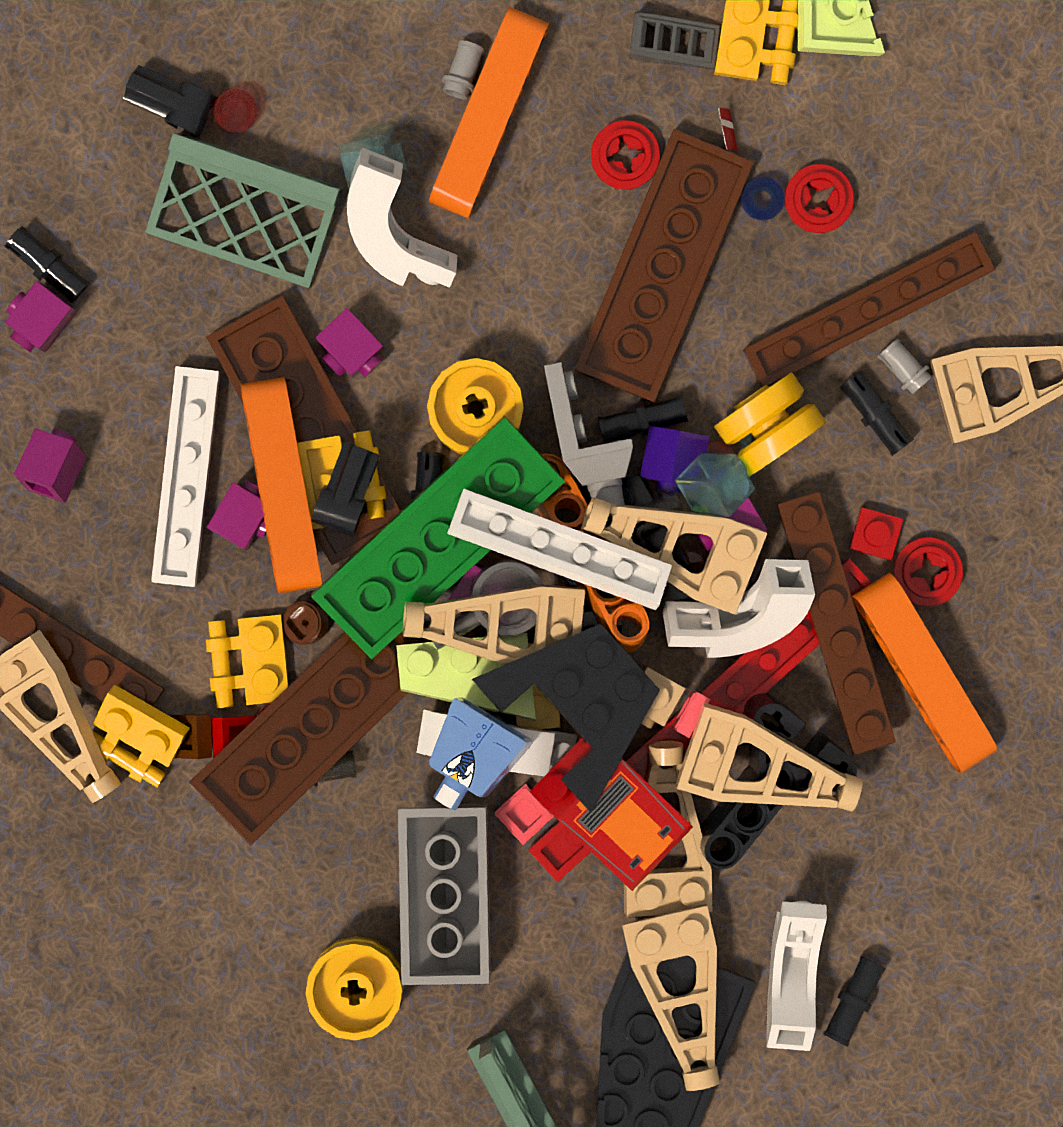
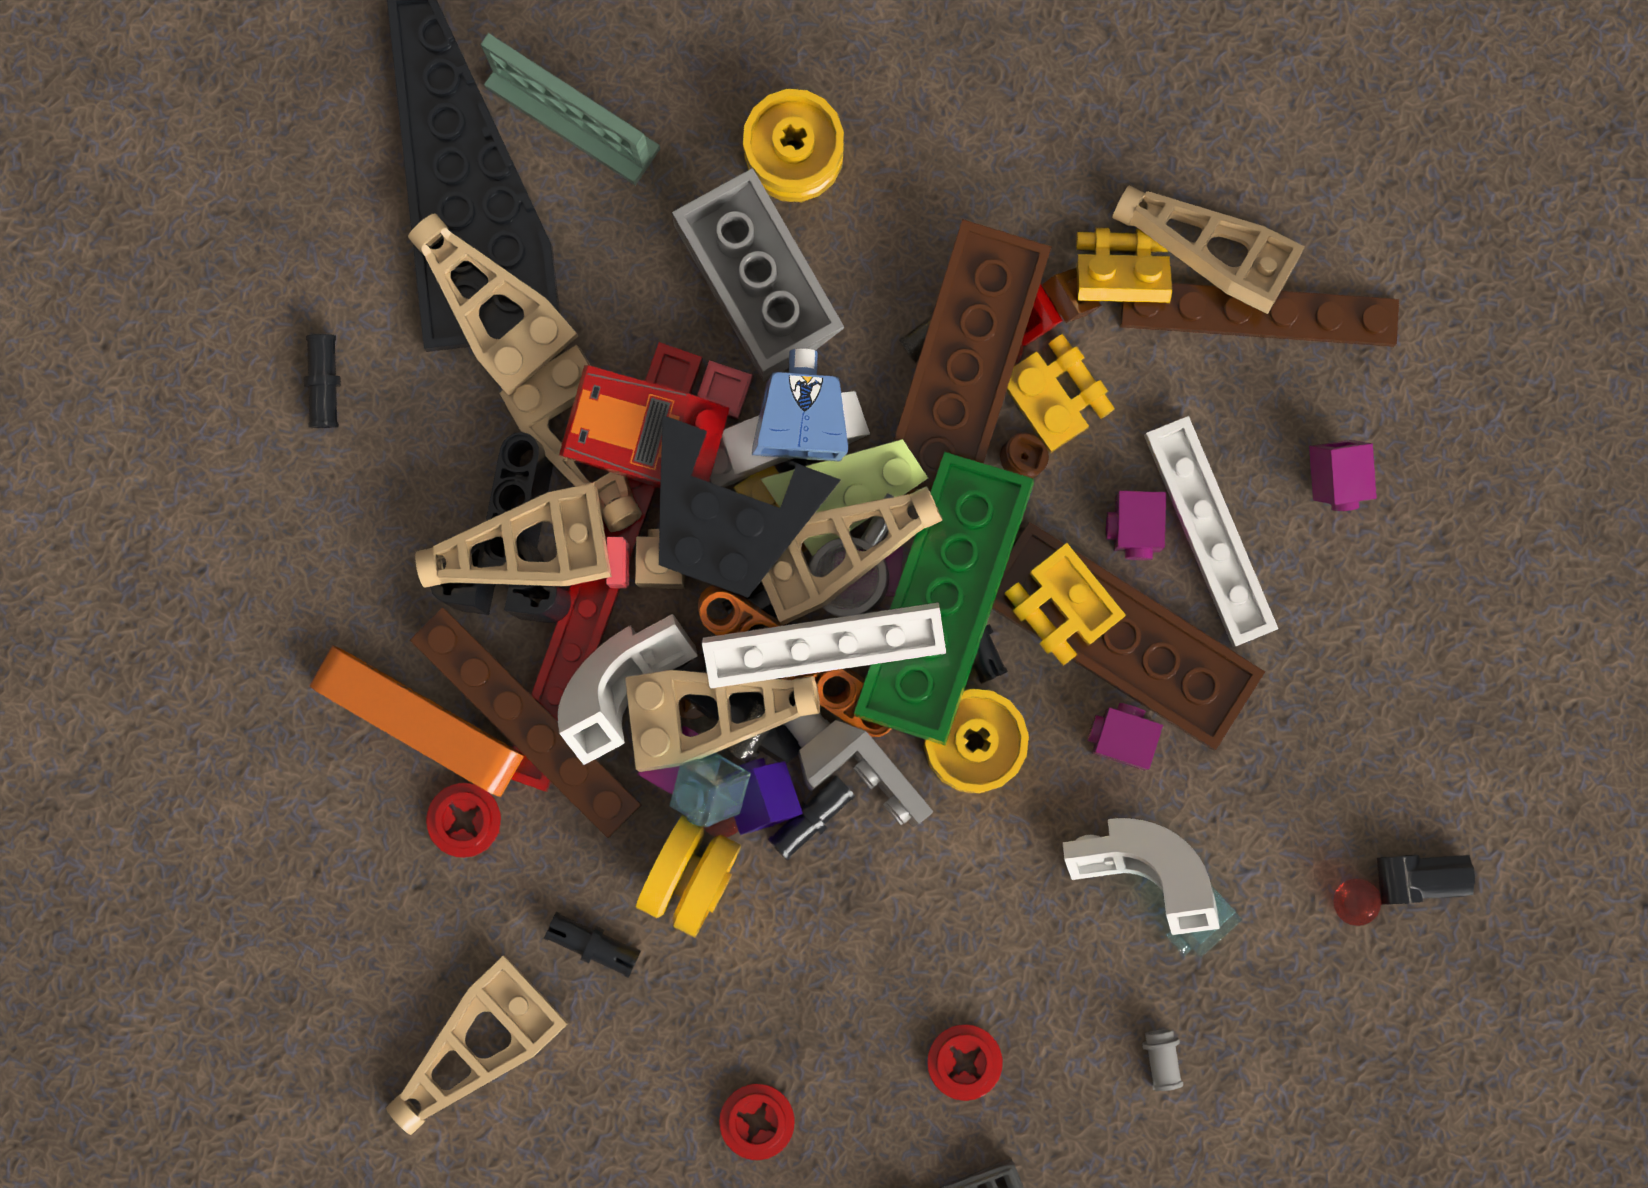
camera: 155 degrees right, 5 degrees down
(38, 317) = (1431, 604): magenta brick -> none
(46, 264) = (1451, 659): black pin -> none
(254, 173) = (1303, 852): sand green fence -> none
(281, 485) = (1118, 567): orange beam -> none
(343, 499) = (1053, 583): black piece -> none
(488, 112) = (1118, 1032): orange beam -> none
(663, 266) = (870, 976): reddish brown plate -> none
(728, 130) = (880, 1141): red sticker -> none
(767, 185) = (806, 1107): clear blue plate -> none
(793, 975) = (391, 372): white arch -> none
(869, 309) = (651, 1040): reddish brown plate -> none
(876, 533) = (532, 829): red plate -> none
(905, 366) = (588, 1004): light grey pin -> none

